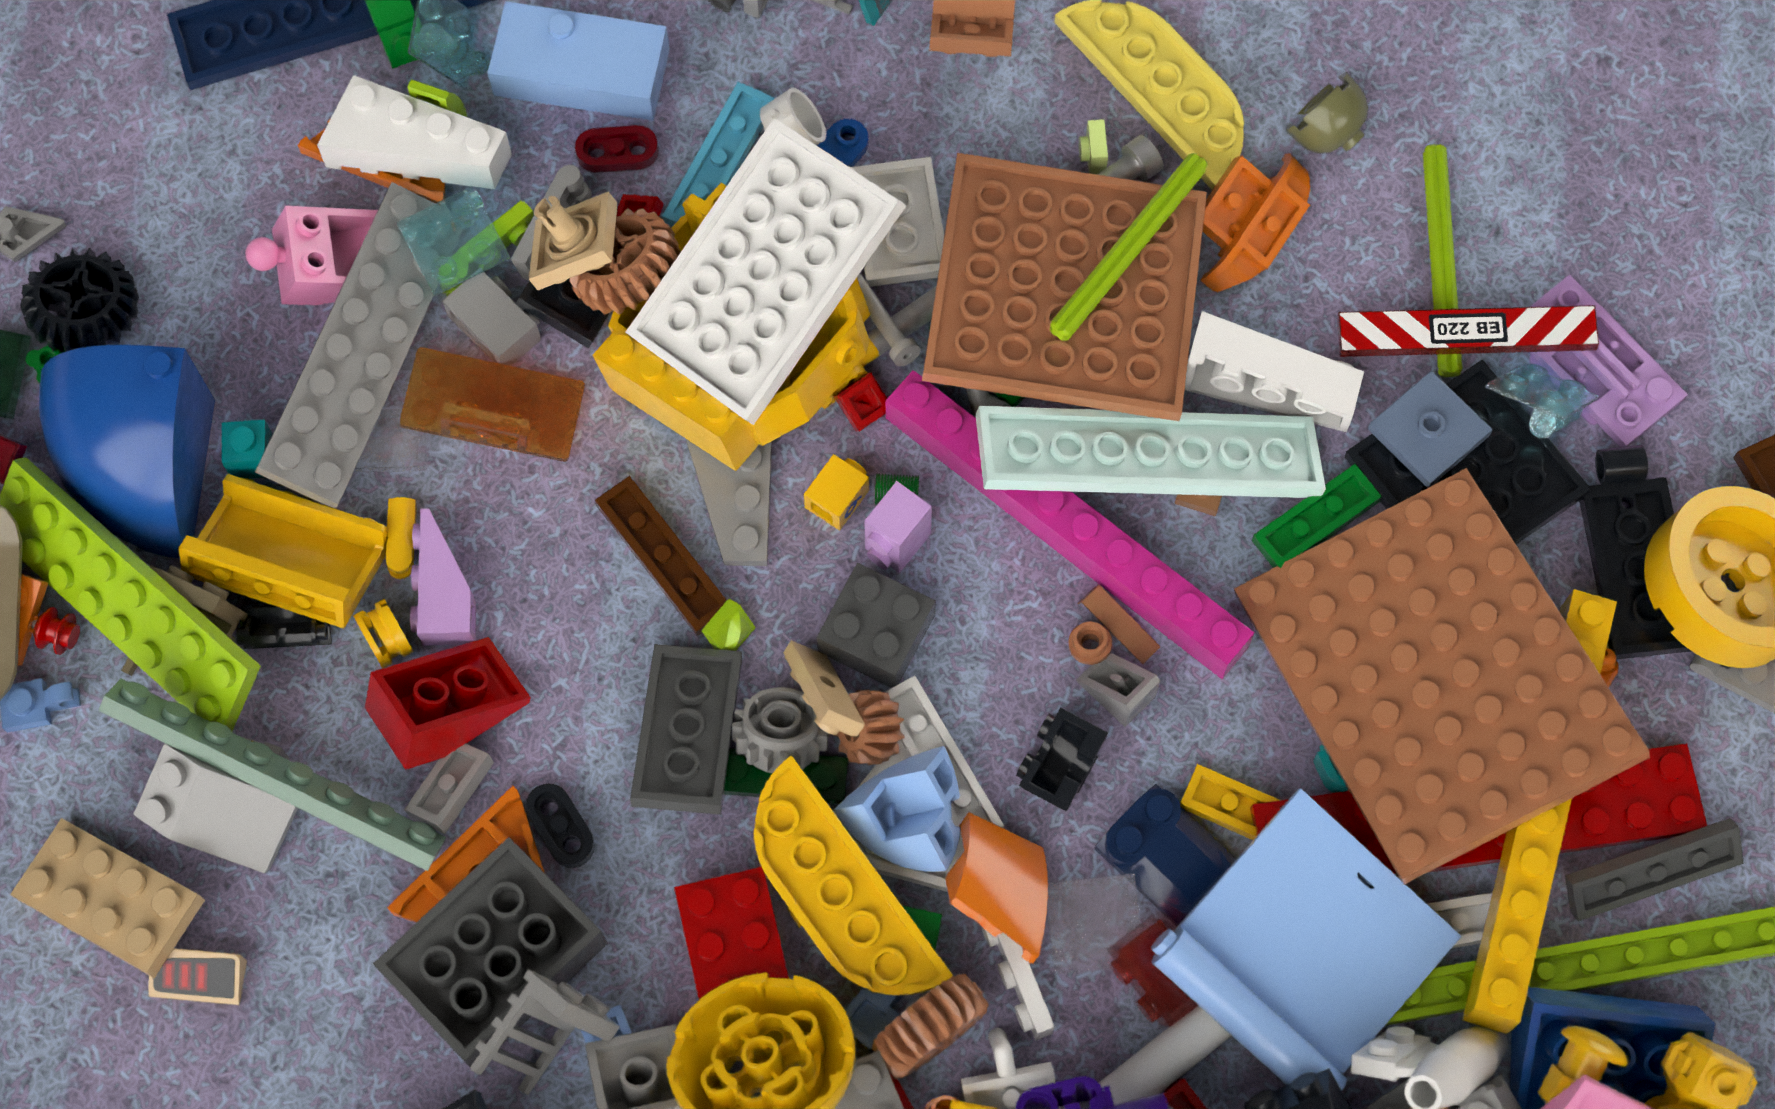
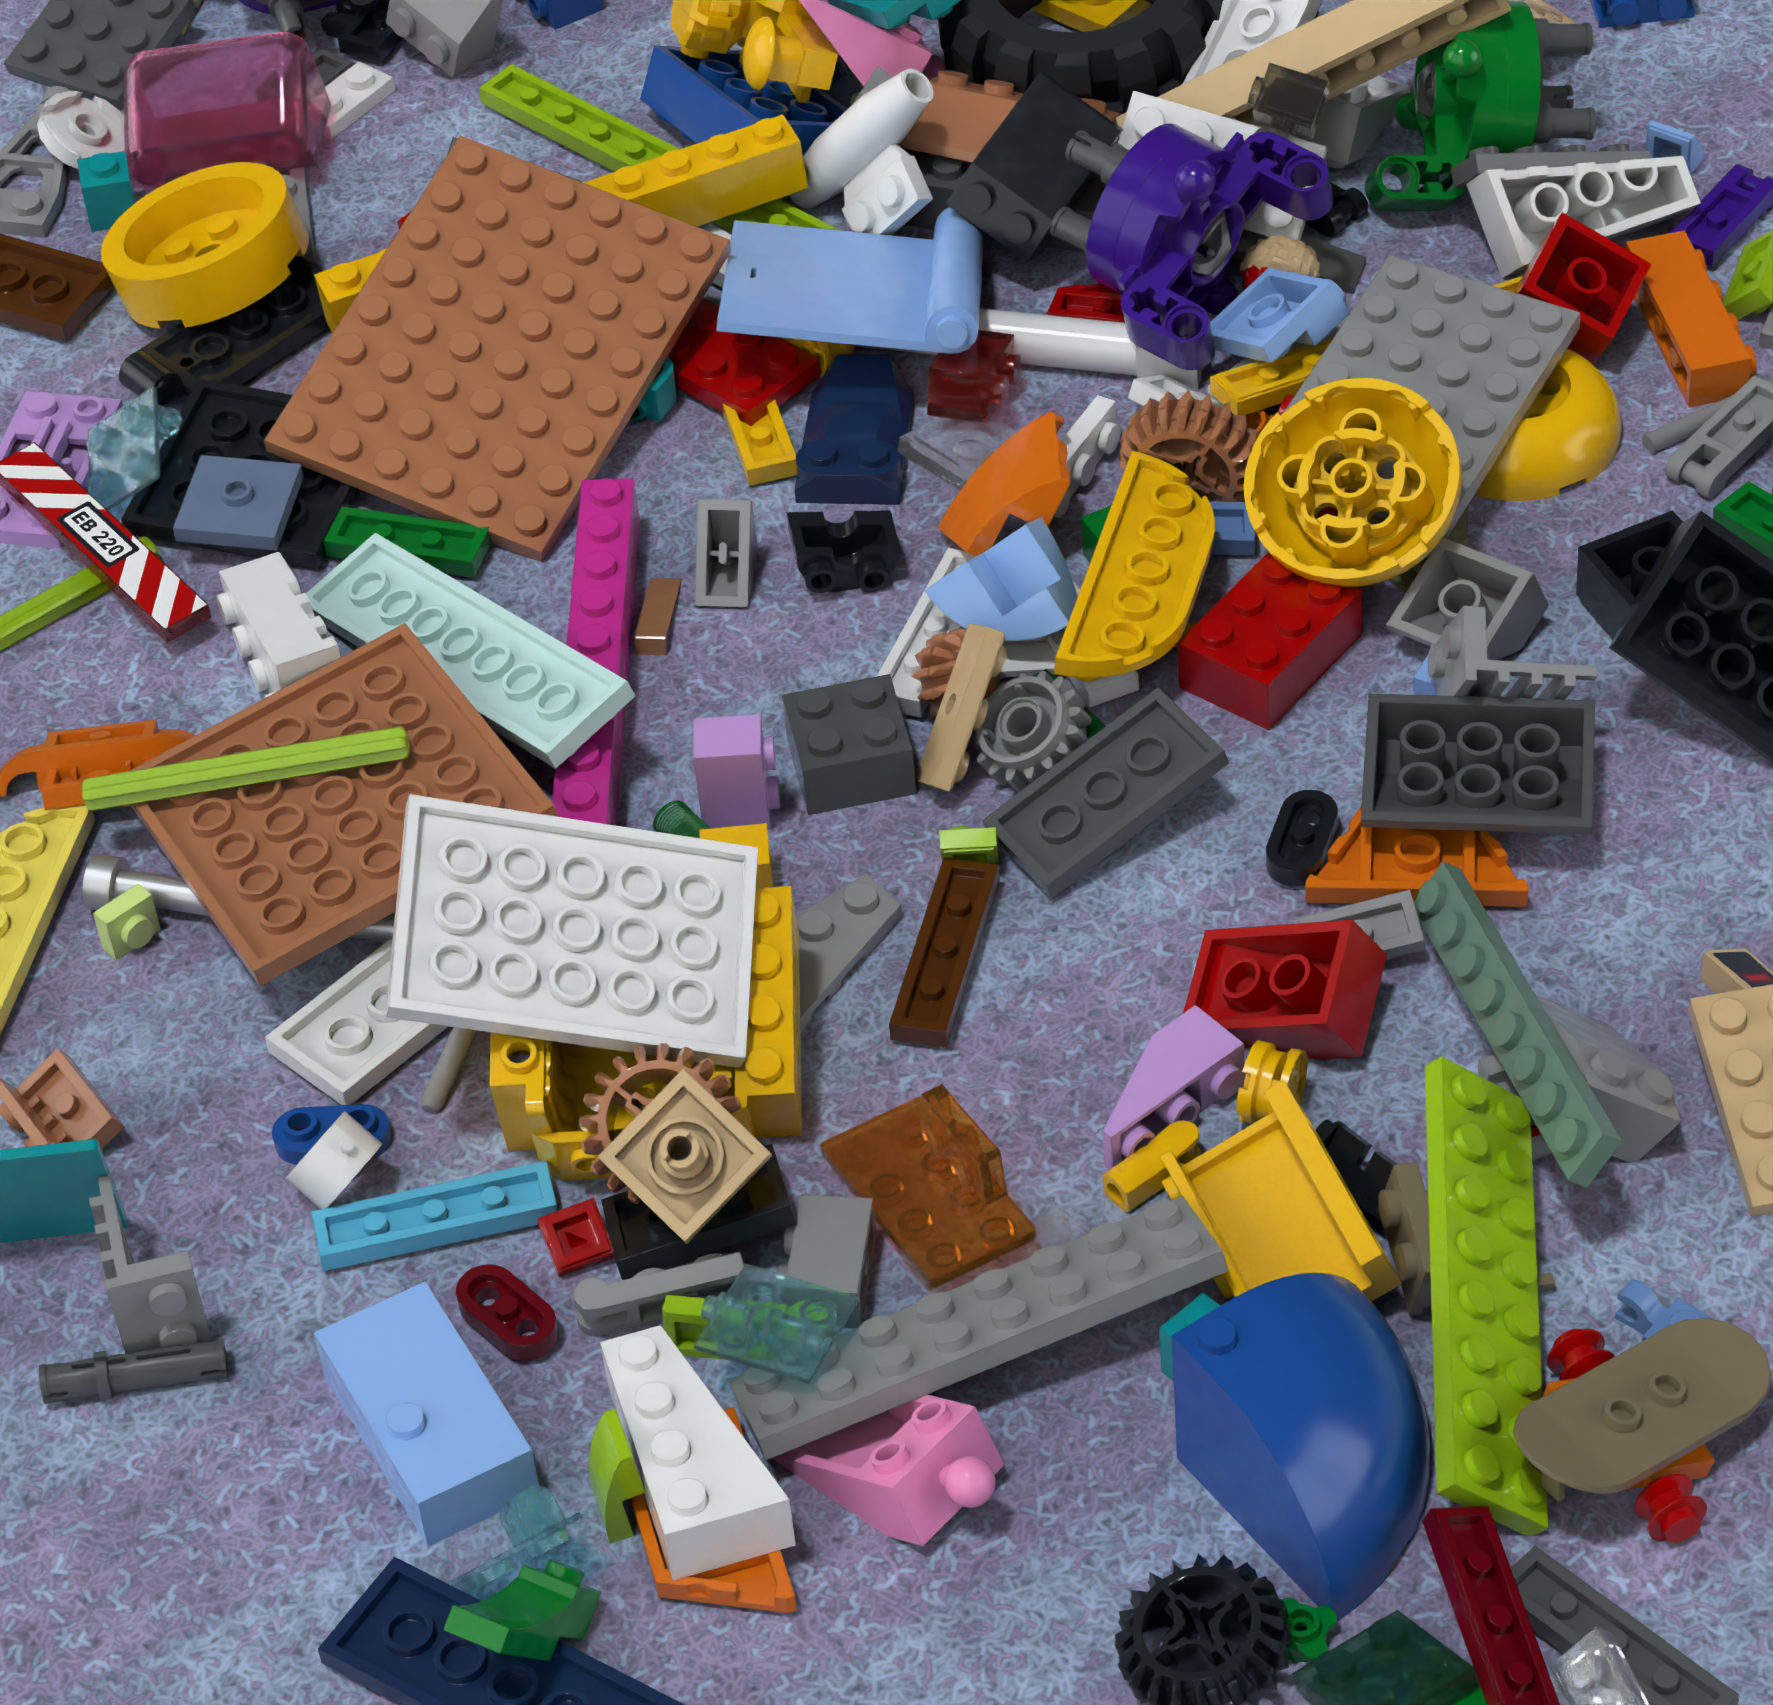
camera: 125 degrees left, 25 degrees down
(1092, 631) = (700, 610): nougat plate -> none

